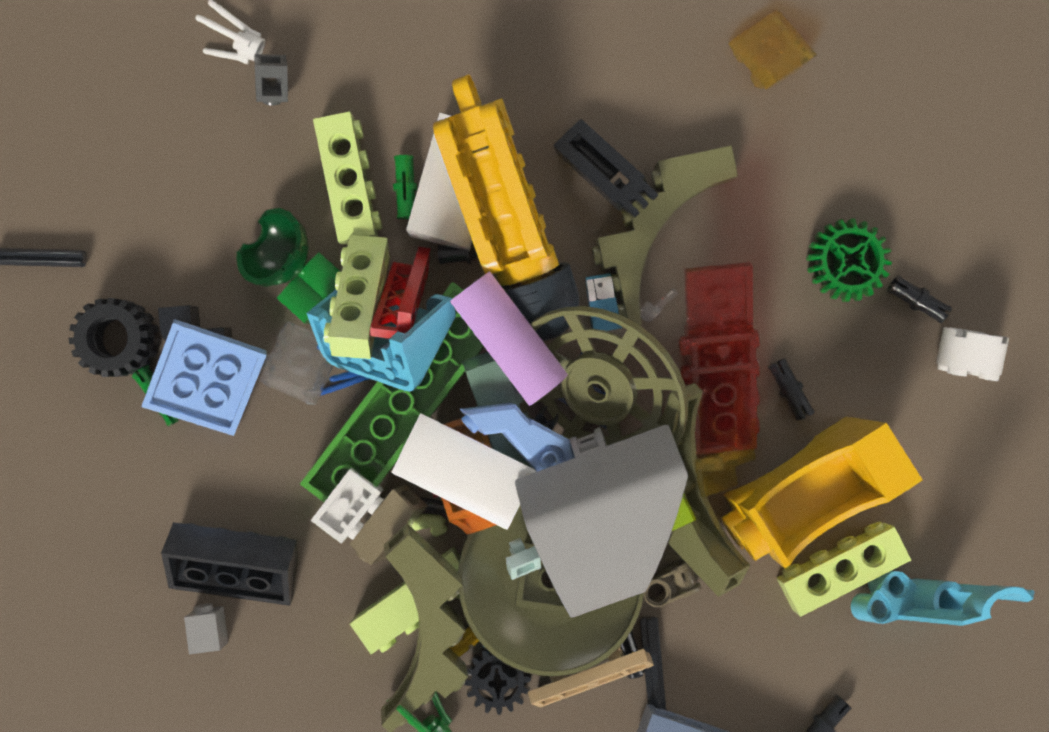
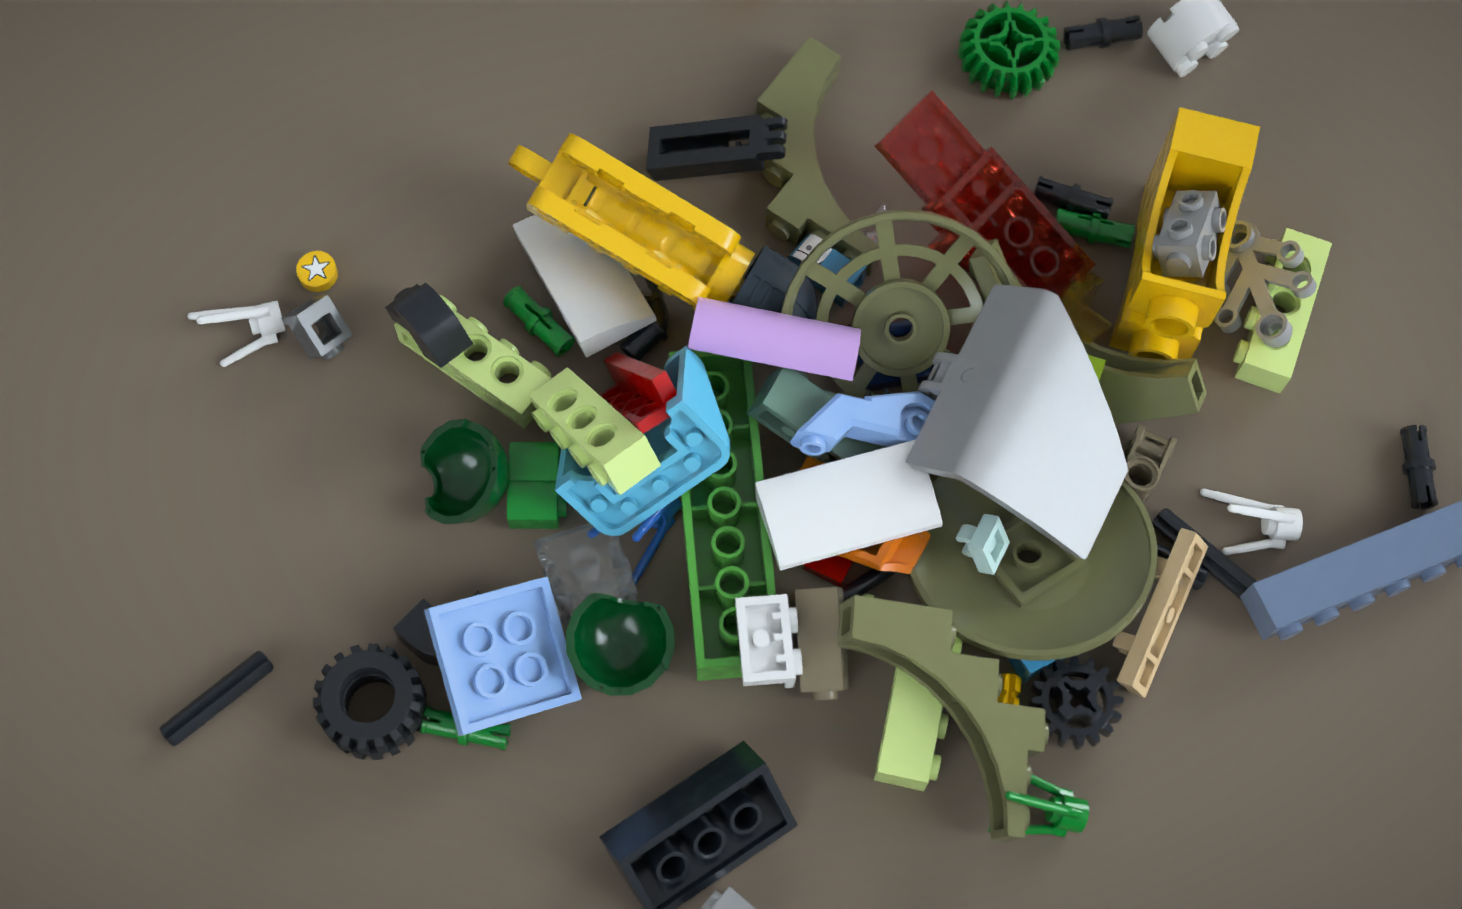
camera: 50 degrees left, 20 degrees down
(273, 427) = (619, 643): none -> dark green cylinder
(305, 38) = (317, 271): none -> yellow tile
(325, 140) = (429, 323): none -> black brick
(707, 684) = (1276, 521): none -> white plant
(784, 419) = (1095, 228): none -> green pin
(814, 499) = (1189, 233): none -> light grey brick
(842, 540) = (1254, 279): none -> light grey plant
(932, 601) = (1353, 288): medium azure panel -> none

